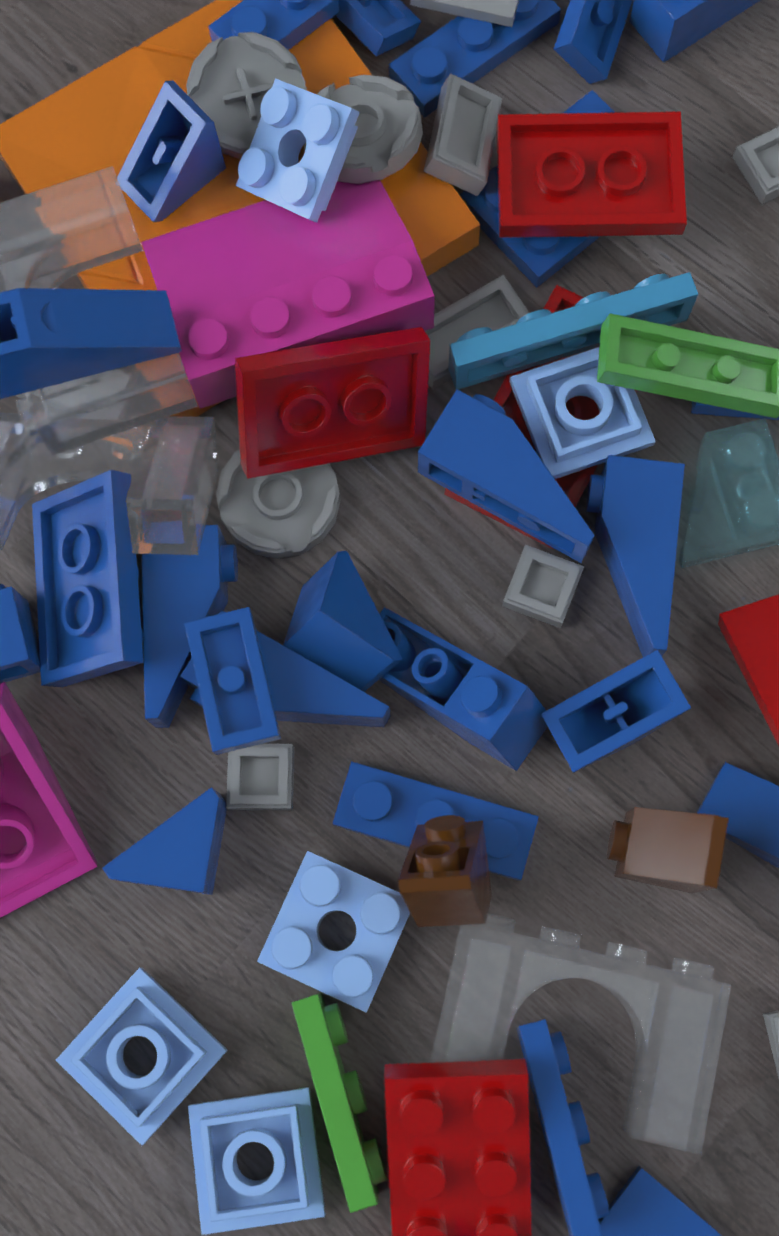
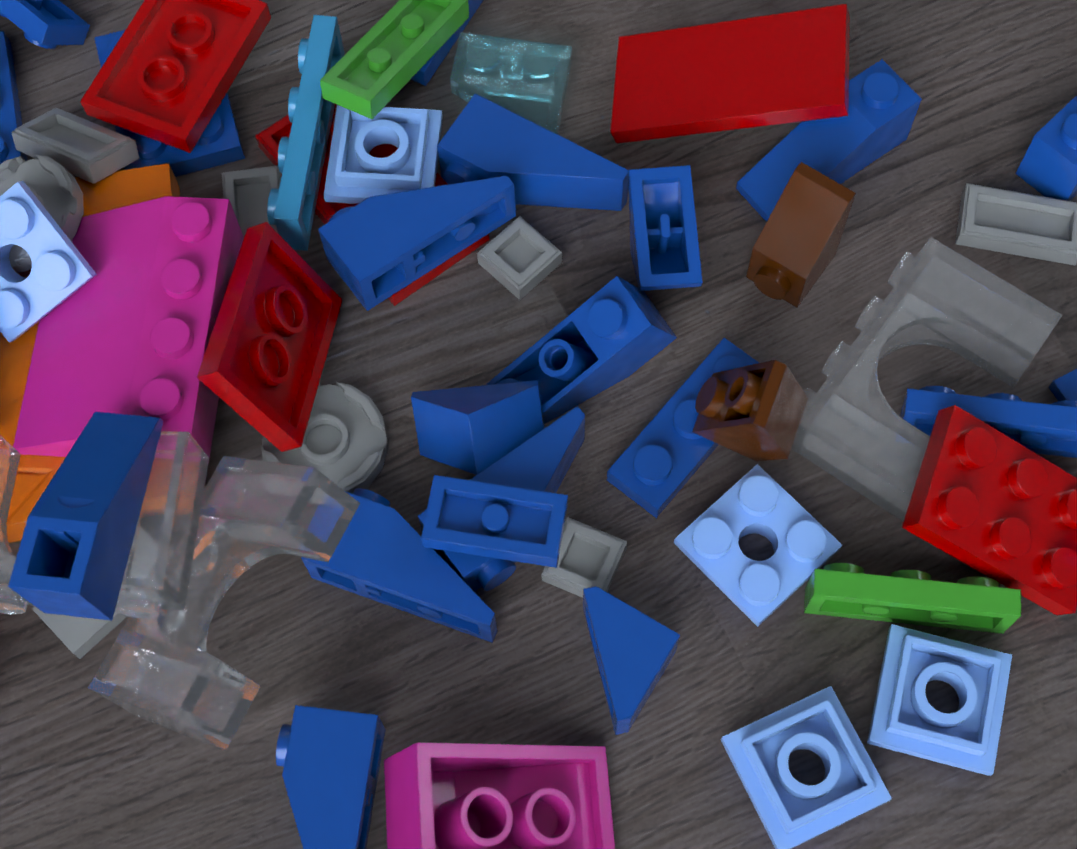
camera: 70 degrees left, 10 degrees down
(86, 582) = (325, 633): blue plate -> none

